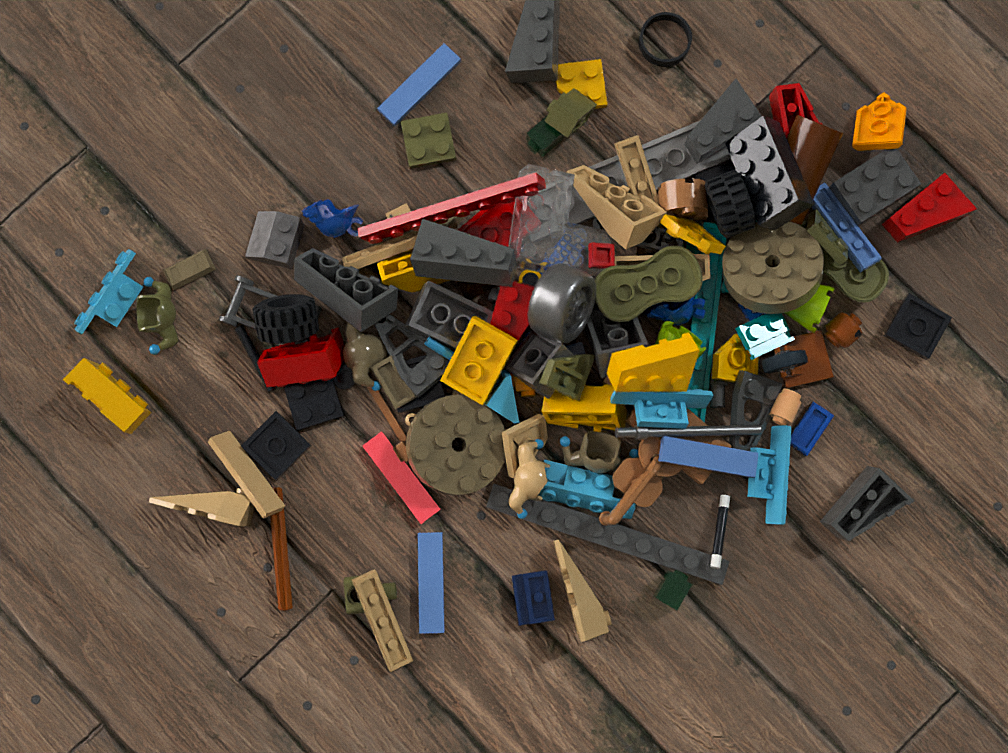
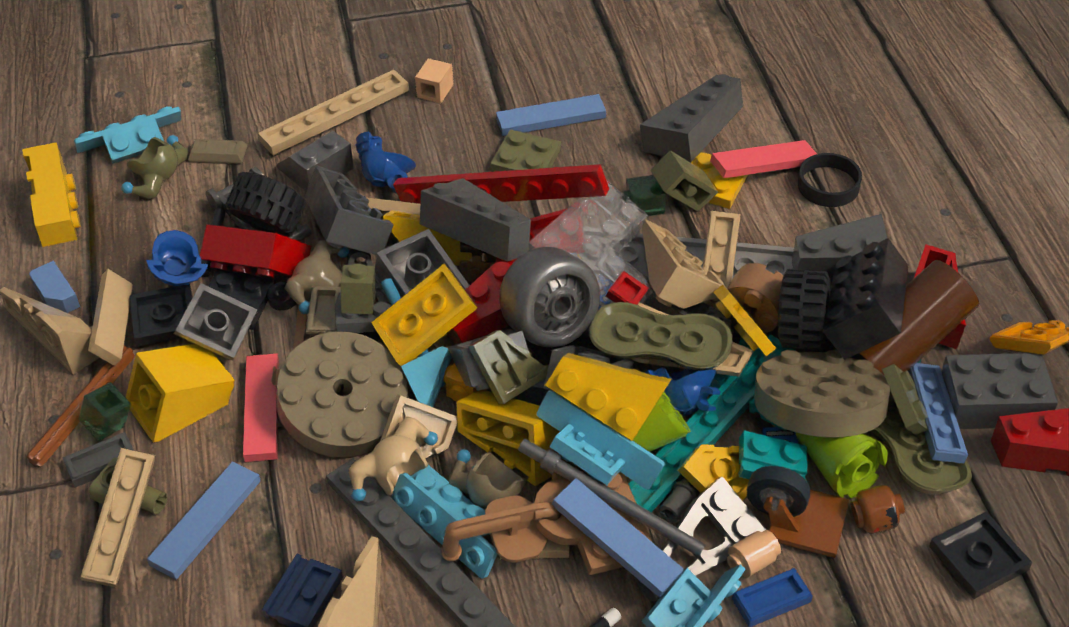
camera: 30 degrees right, 35 degrees down
(176, 468) = (54, 287): none -> medium blue piece
(251, 178) = (333, 112): none -> tan plate
(256, 402) = (176, 259): none -> blue helmet
(307, 101) = (434, 80): none -> light nougat brick
(308, 551) = (104, 411): none -> clear green brick
(326, 580) = (89, 462): none -> dark grey tile
(330, 444) = (216, 321): none -> flat silver slope
(339, 501) = (176, 388): none -> yellow slope
(417, 364) = (357, 289): none -> olive brick
(610, 48) = (761, 158): none -> coral tile

